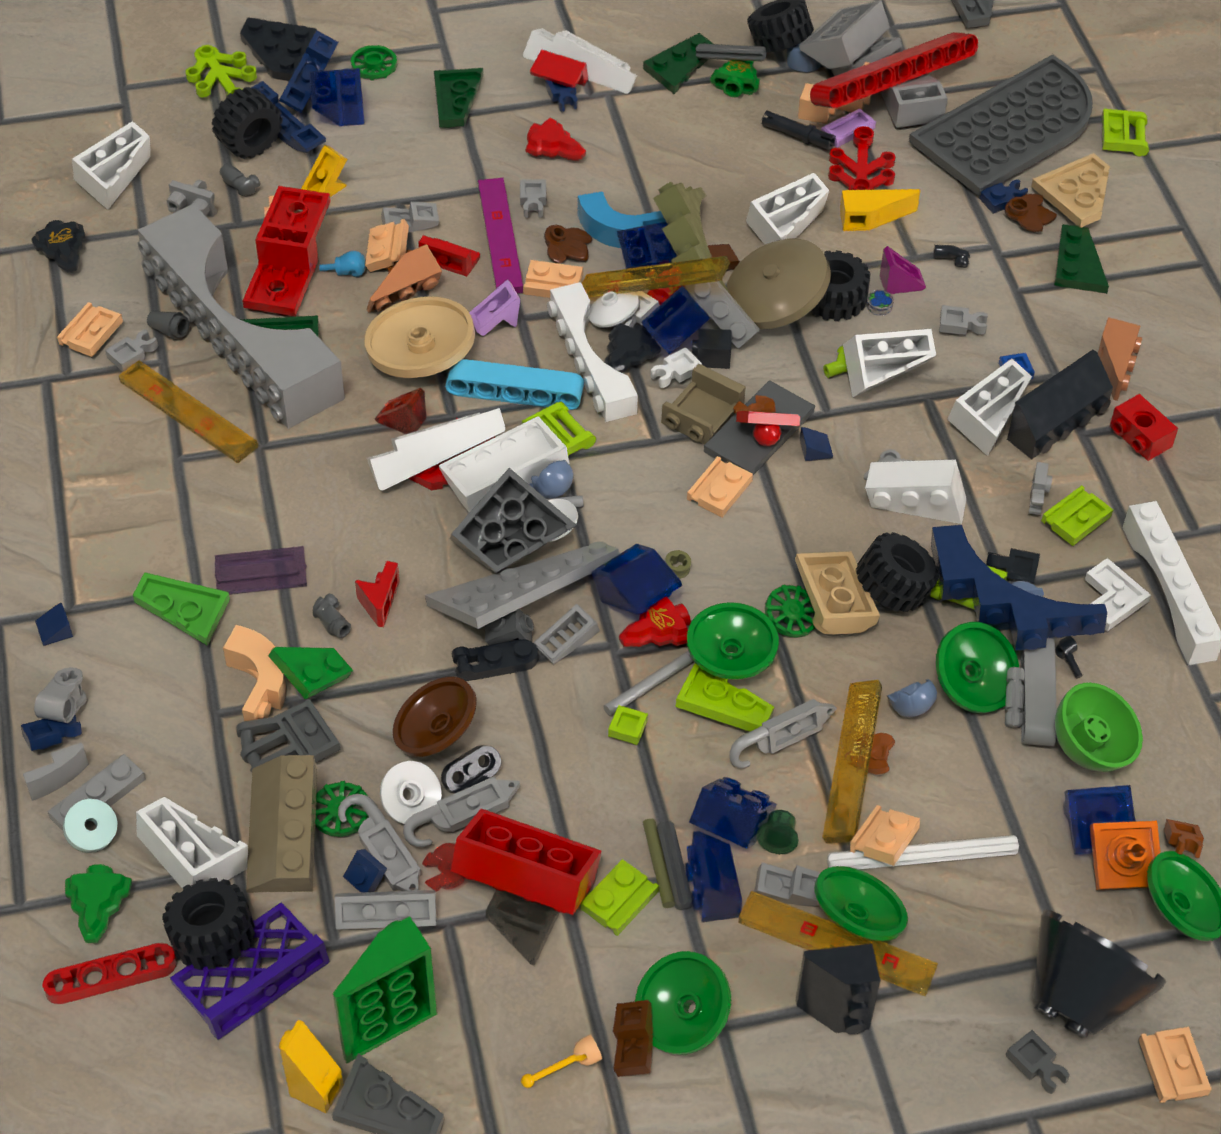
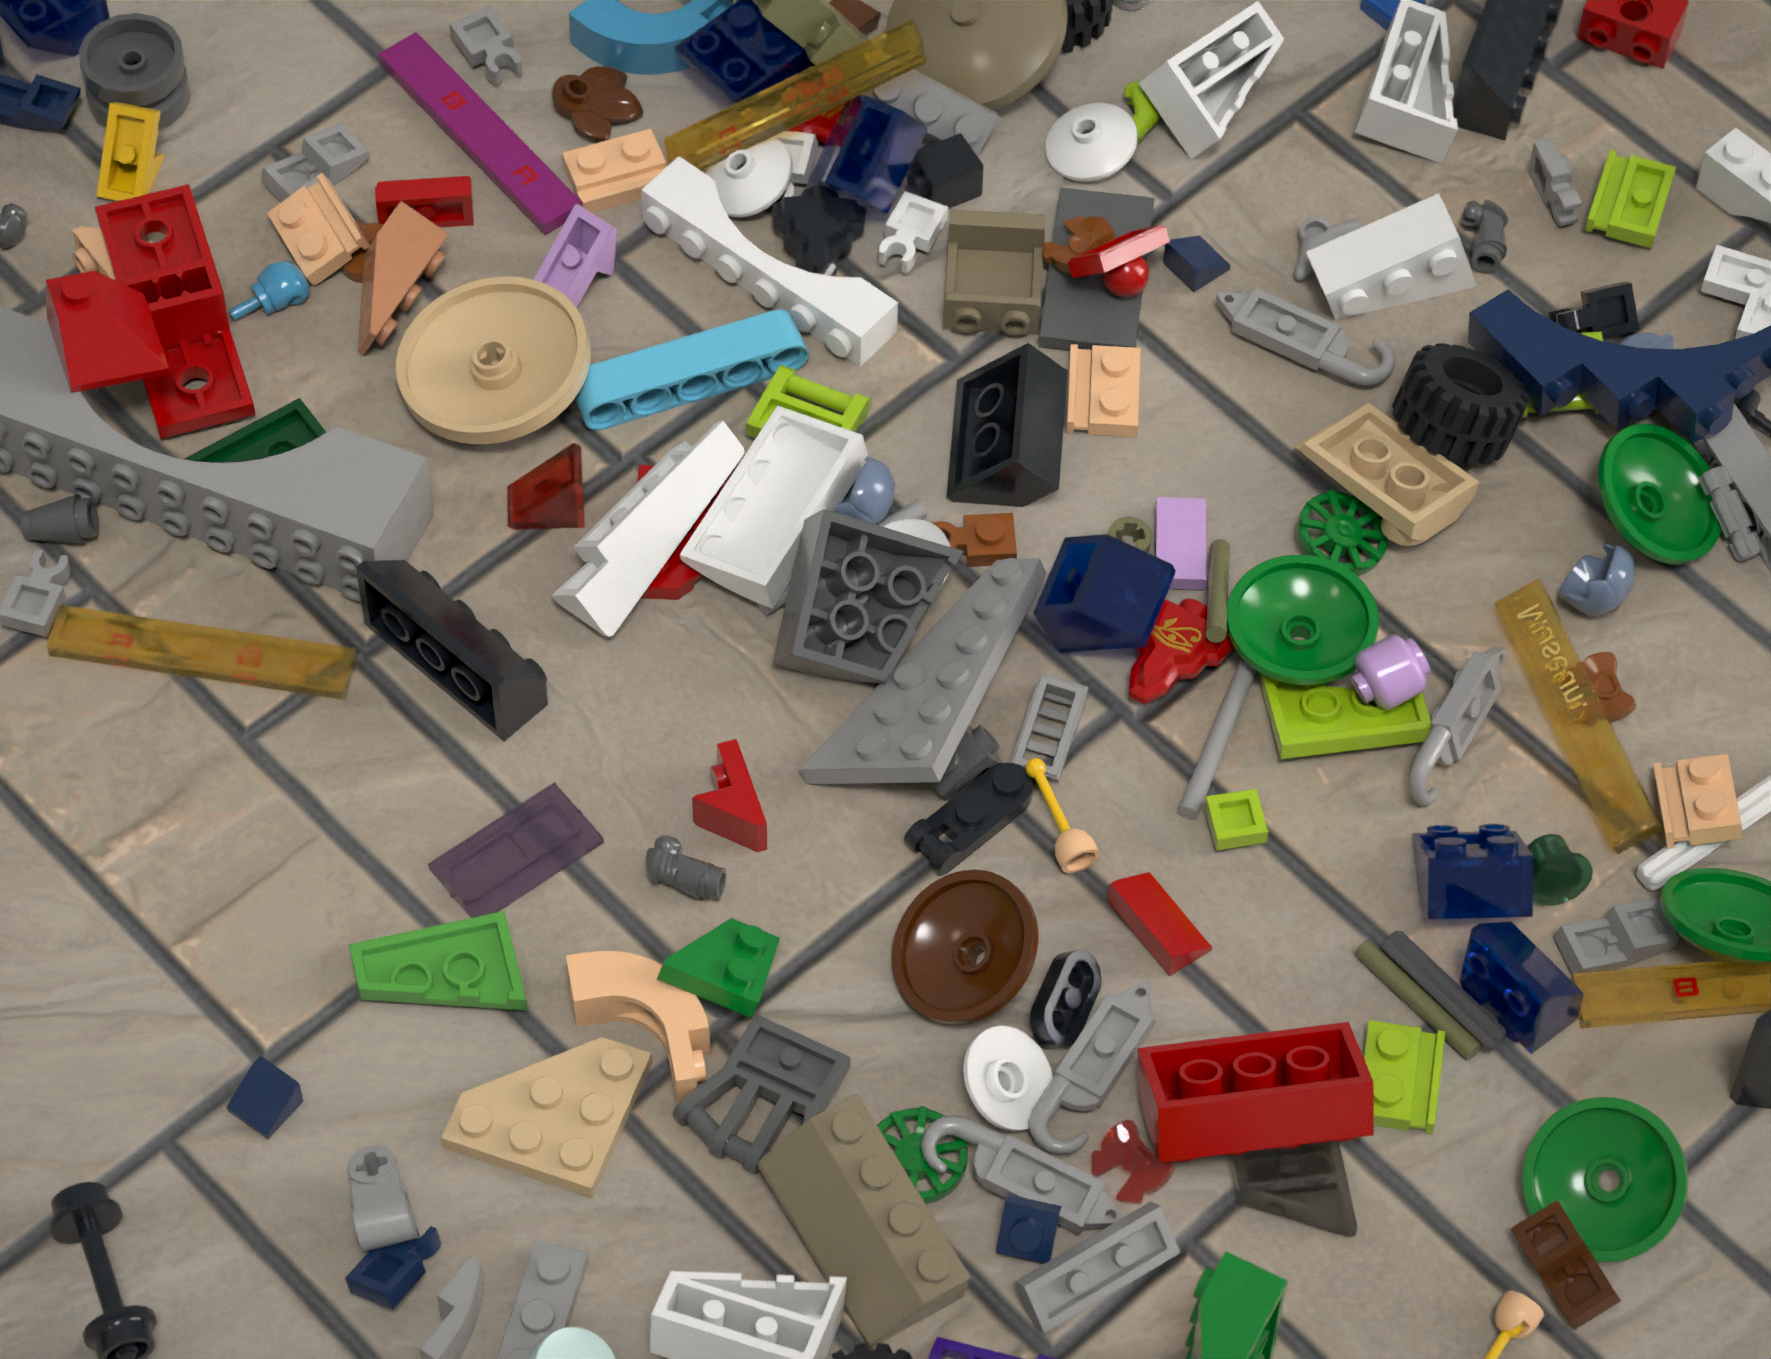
camera: 30 degrees left, 5 degrees up
(180, 701) = (553, 1116): none -> tan plate
(233, 237) = (102, 331): none -> red slope
(300, 457) = (451, 645): none -> black slope
(356, 137) = (134, 63): none -> dark grey wheel
(532, 698) = (1073, 847): none -> light nougat hinge
(551, 756) = (1157, 921): none -> red slope
(600, 529) = (982, 538): none -> dark orange plate
(653, 483) = (1008, 430): none -> black slope
(704, 577) = (1182, 539): none -> lavender tile
(707, 601) = (1218, 591): none -> olive bar
(758, 687) = (1390, 672): none -> lavender head
(802, 365) = (1091, 142): none -> white dish
(841, 503) = (1299, 335): none -> light grey plate
(983, 500) = (1489, 237): none -> dark grey arm

